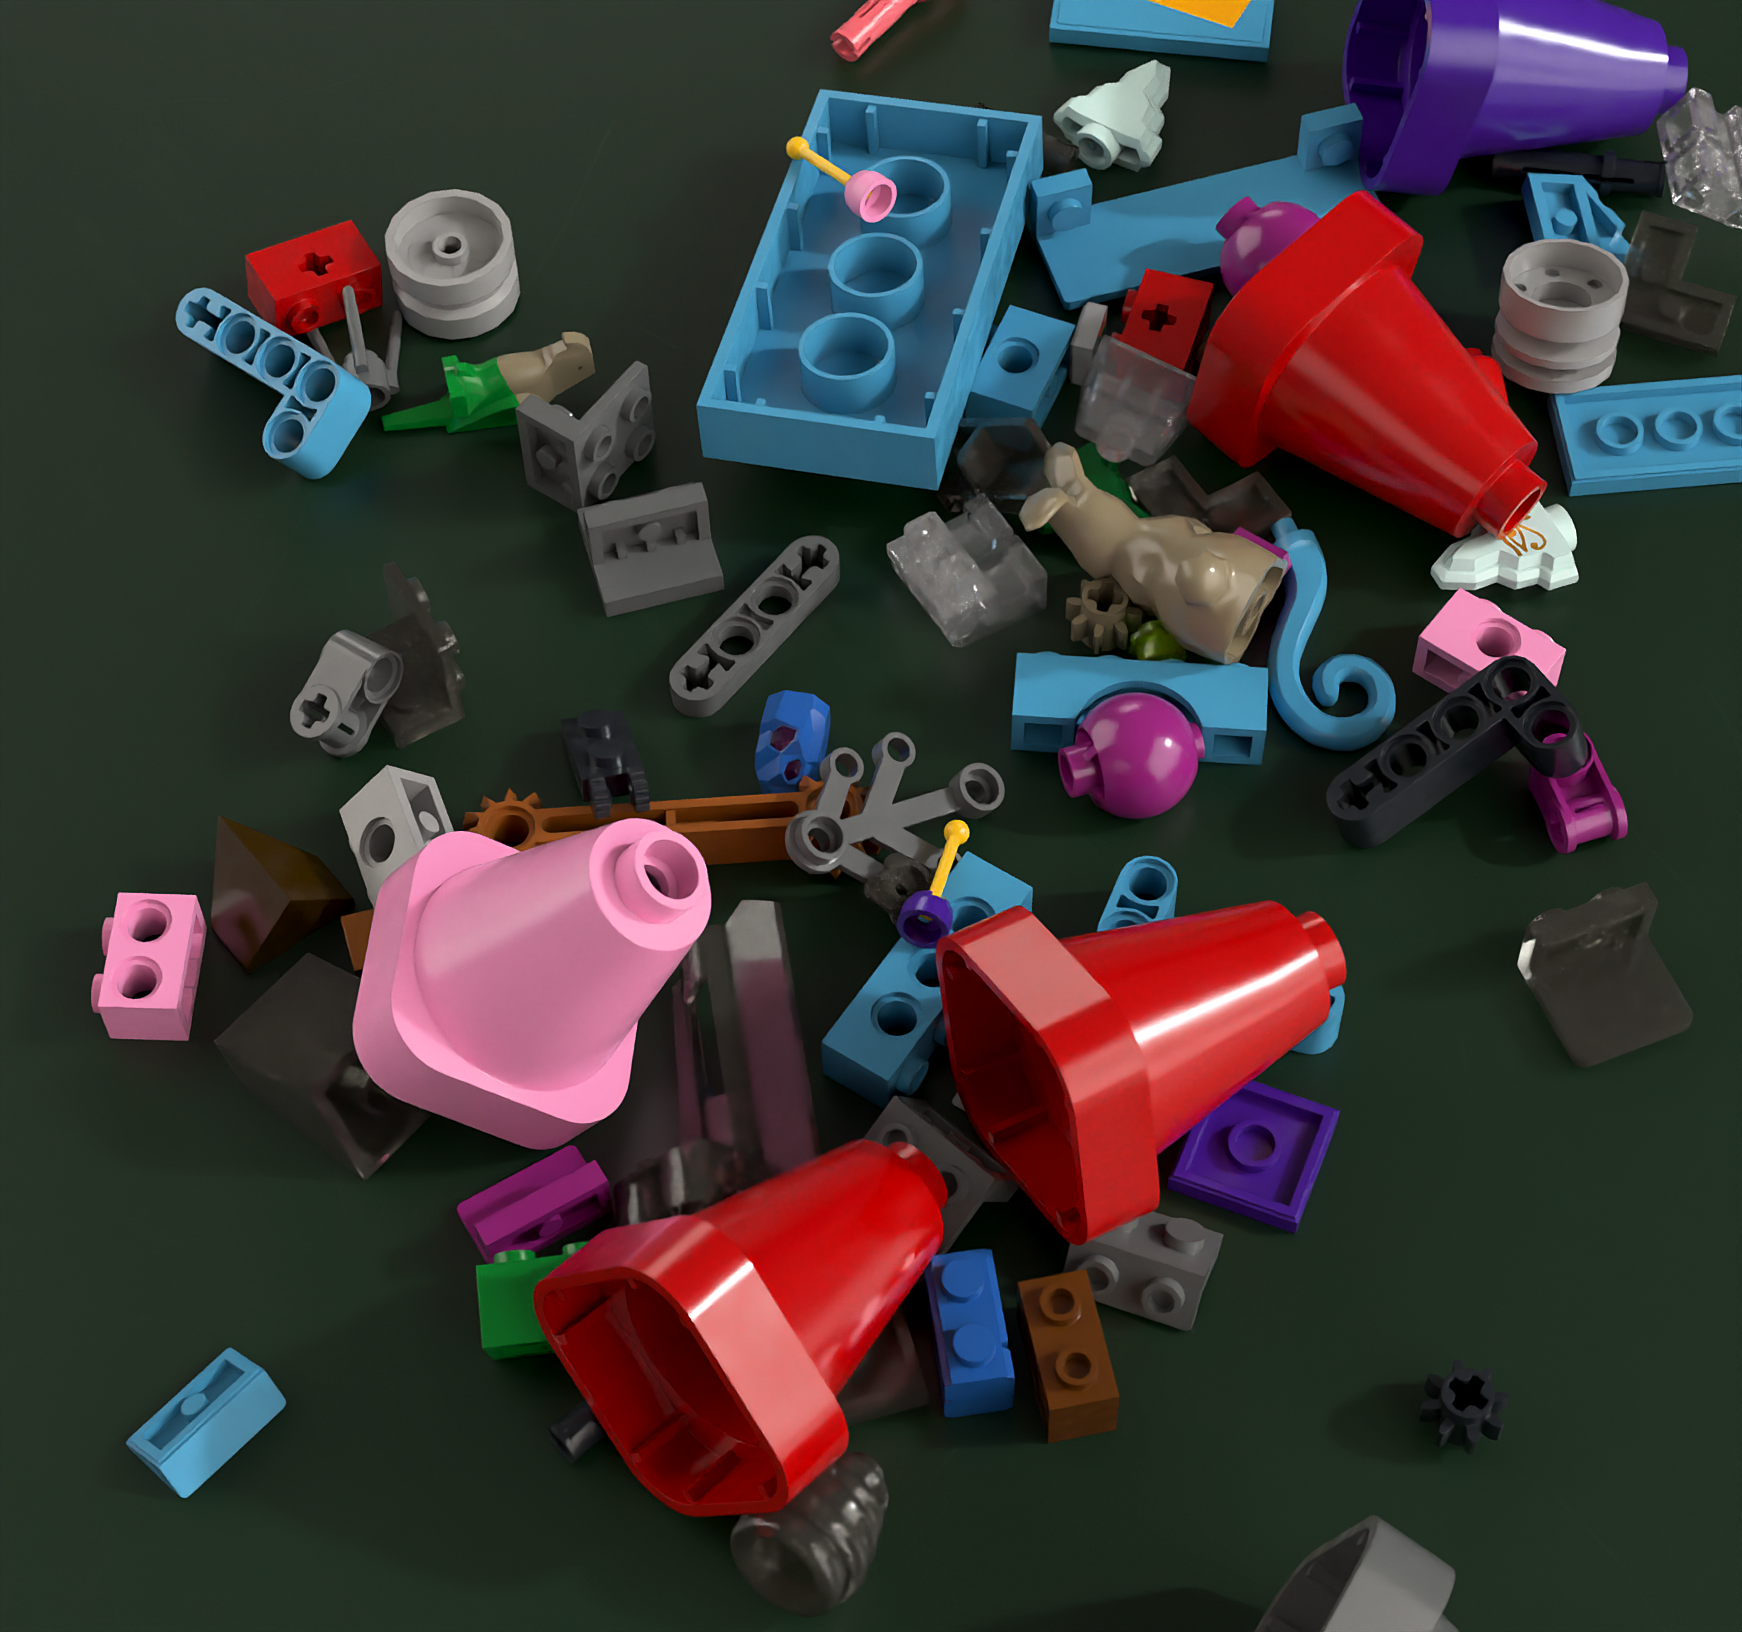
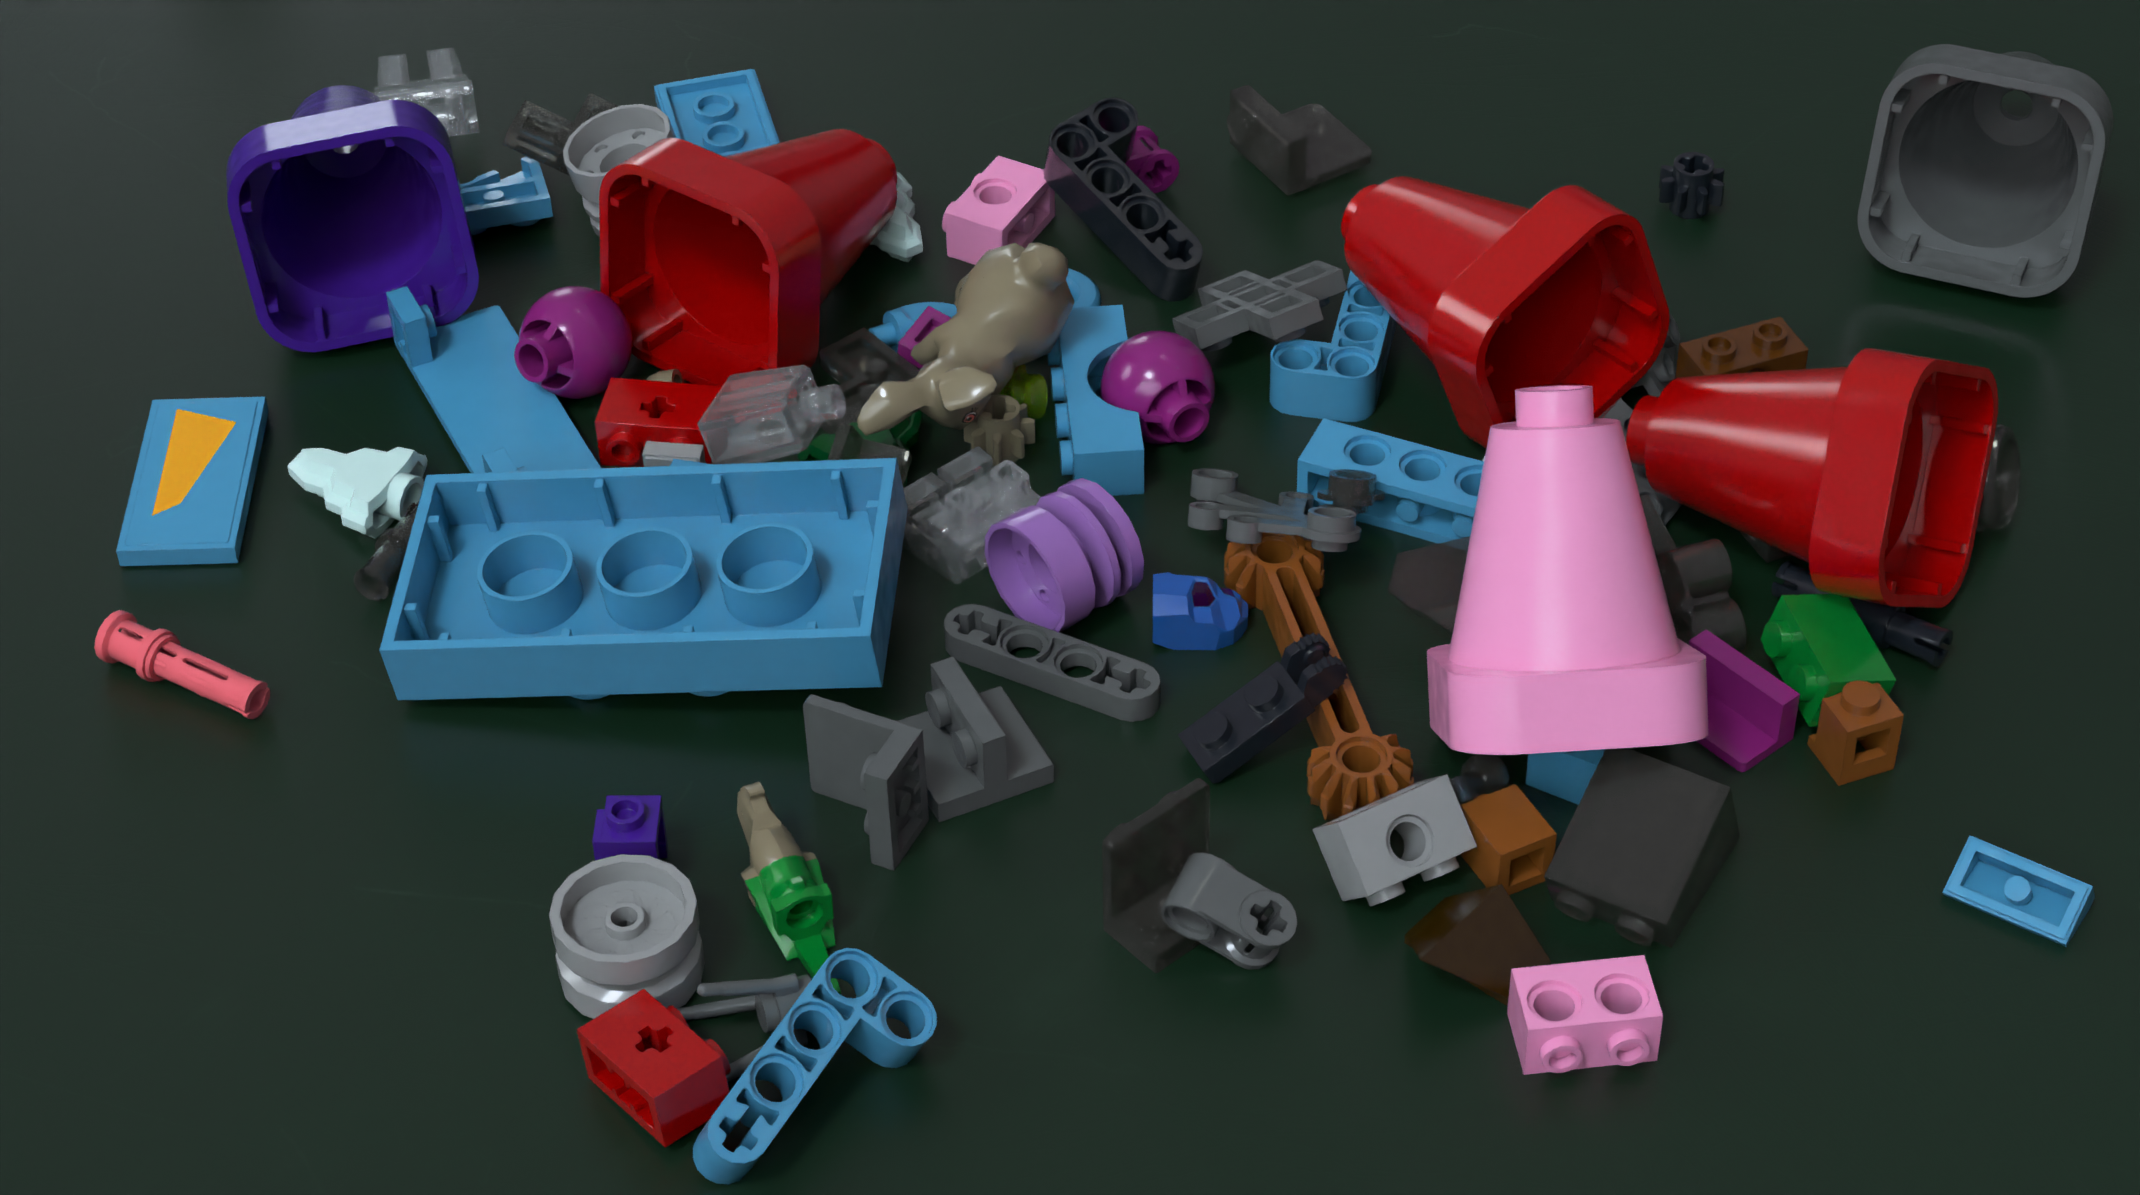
camera: 100 degrees left, 15 degrees down
(443, 1307) = (1857, 714): none -> dark orange brick
(575, 264) = (630, 827): none -> dark purple window
(856, 622) = (1064, 555): none -> medium lavender wheel
(866, 192) = (565, 556): bright pink hinge -> none
(929, 903) = (1384, 457): dark purple hinge -> none
(1244, 857) = (1270, 307): none -> dark grey plate

